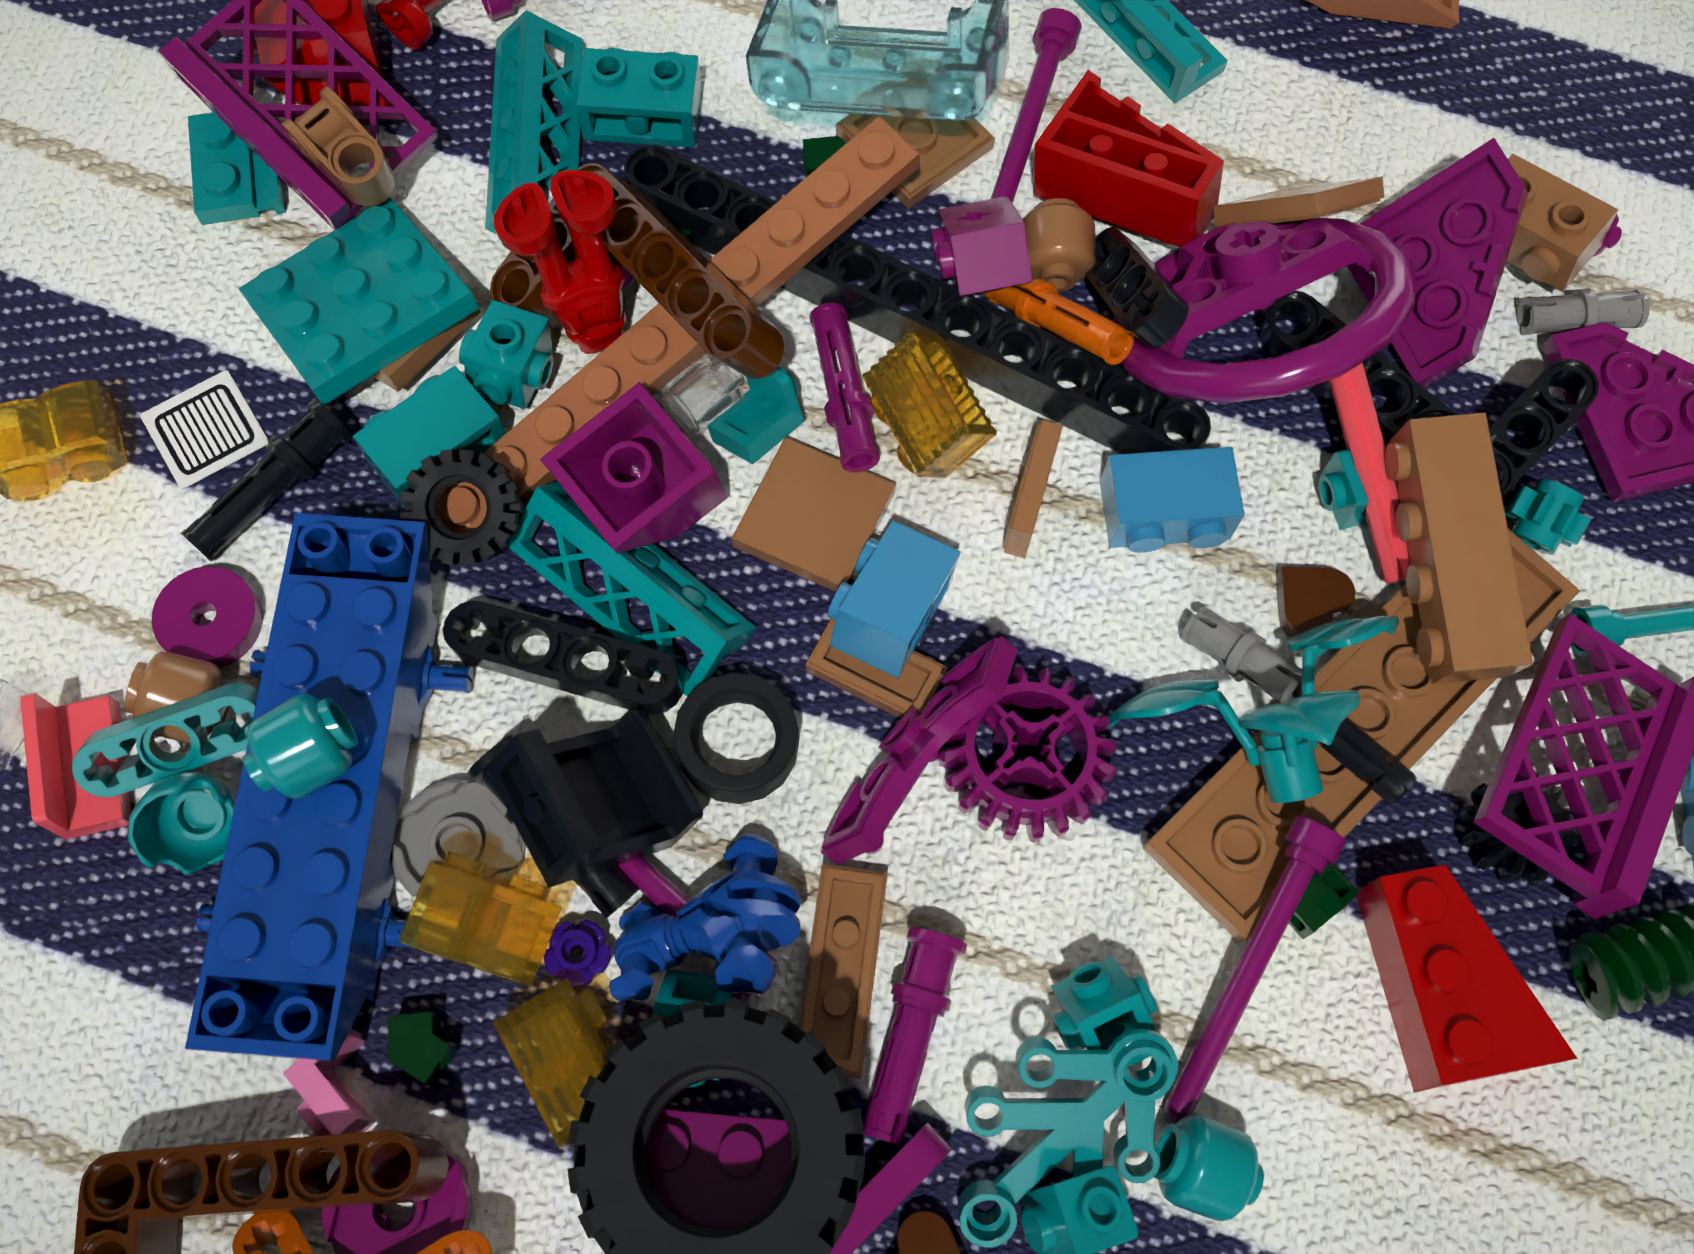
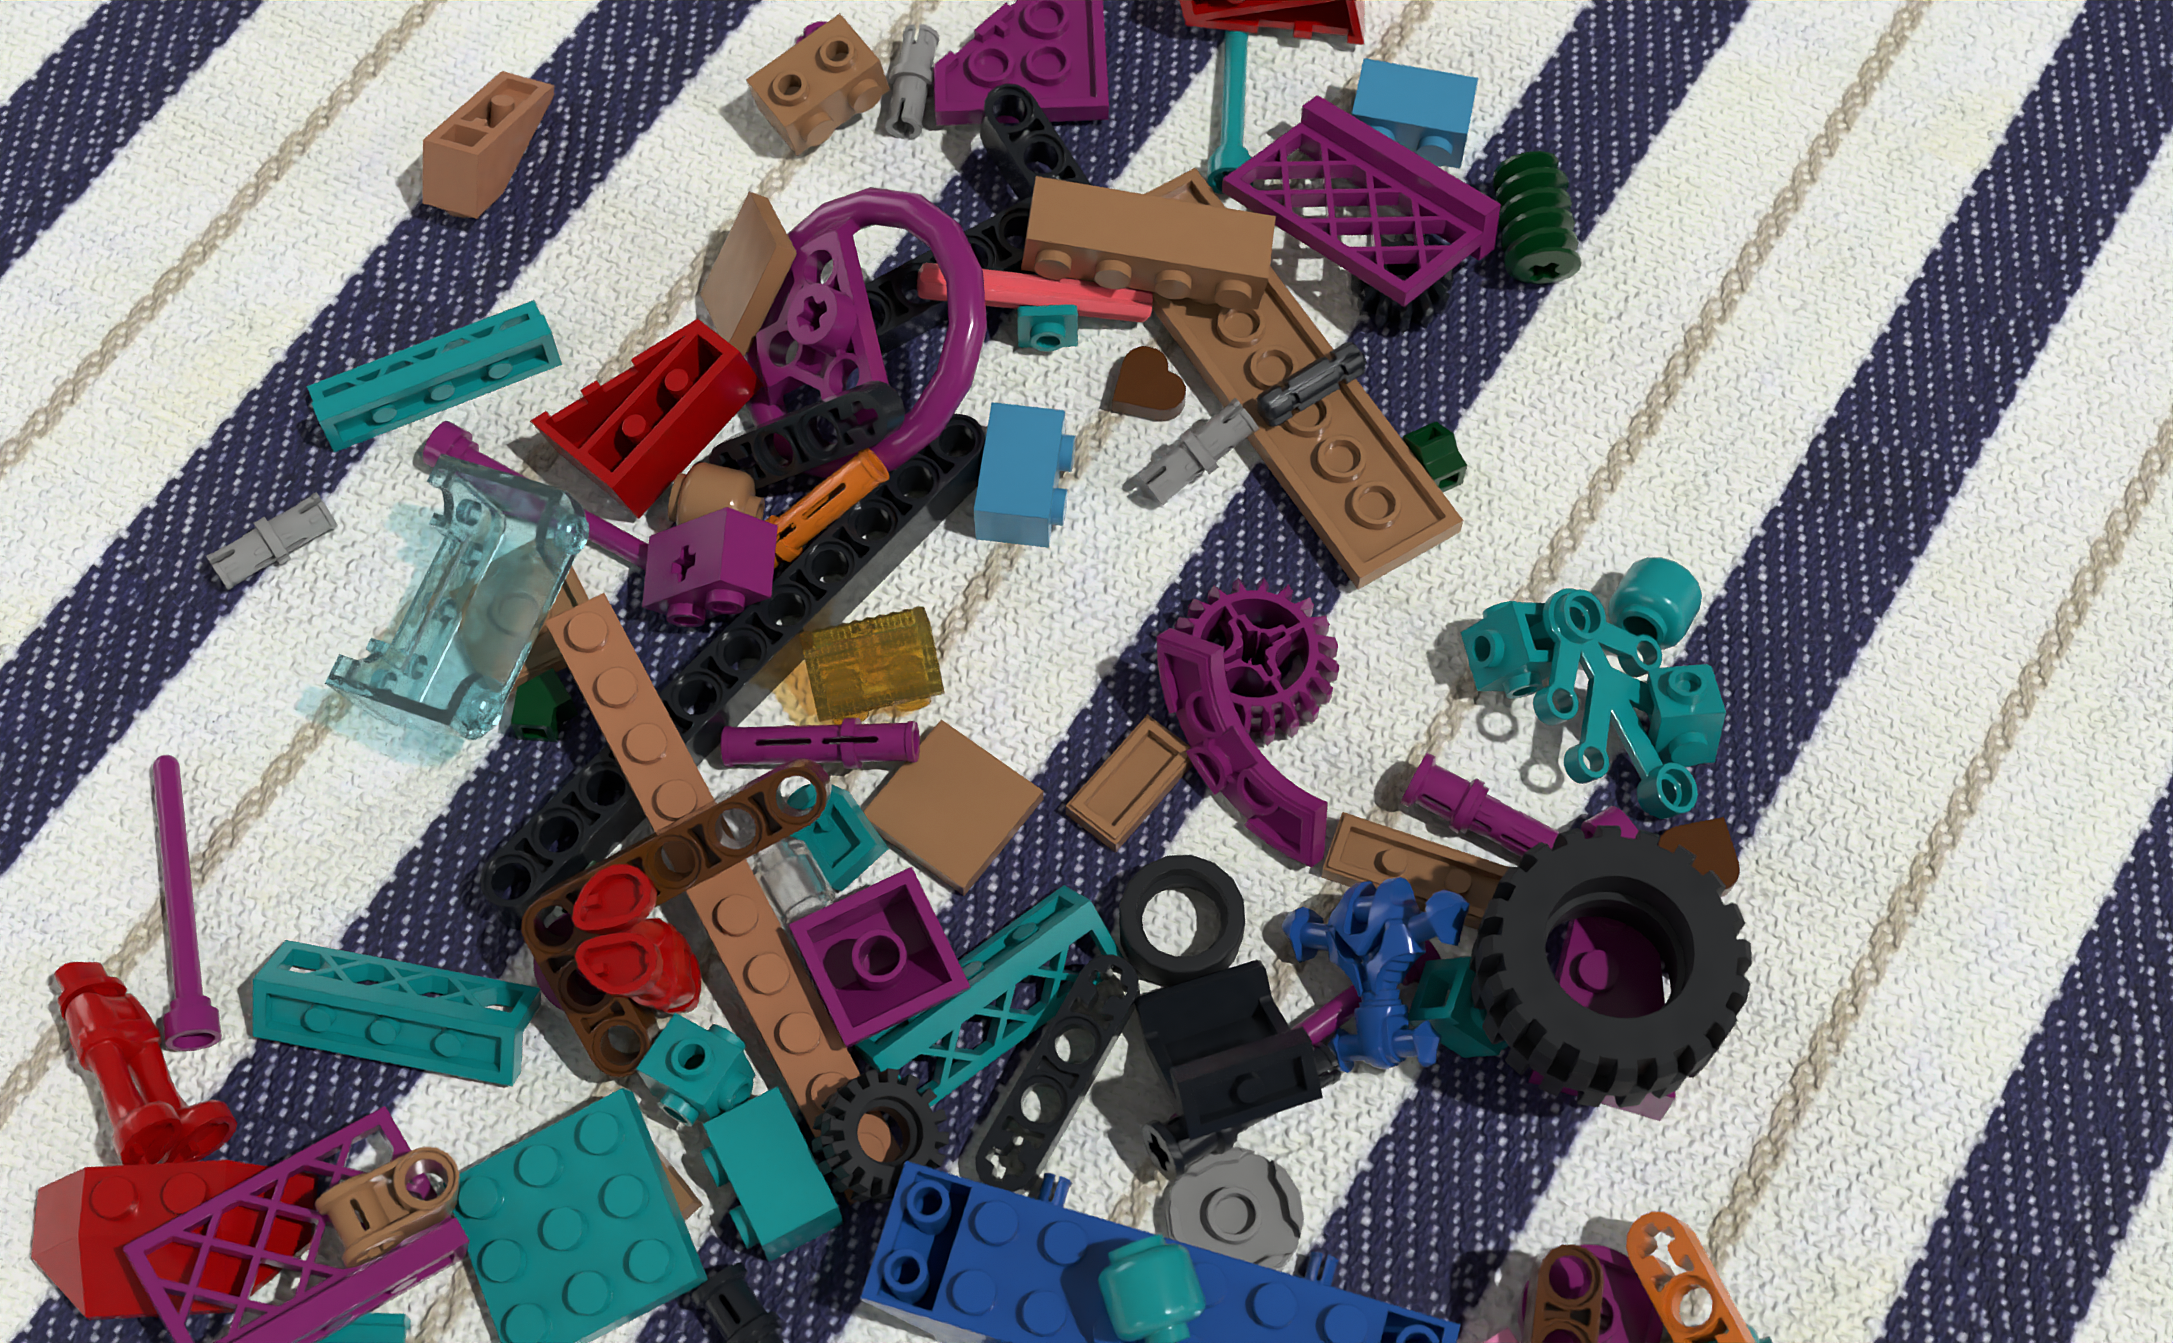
camera: 75 degrees left, 5 degrees down
(418, 1047) = (1435, 1279): dark green piece -> none
(481, 919) = (1328, 1188): clear yellow brick -> none
(556, 1050) = (1479, 1131): clear yellow brick -> none
(592, 962) = (1367, 1130): dark purple plate -> none
(639, 97) = (395, 884): teal brick -> none
(892, 597) = (1073, 740): dark azure brick -> none
(1032, 488) = (981, 593): medium nougat tile -> none
(1288, 728) = (1310, 390): teal plant -> none
(1308, 852) = (1400, 445): magenta piece -> none
(1451, 985) = (1531, 373): red wedge -> none
(1459, 240) = (823, 150): magenta plate -> none
(1547, 516) = (1120, 165): teal gear -> none

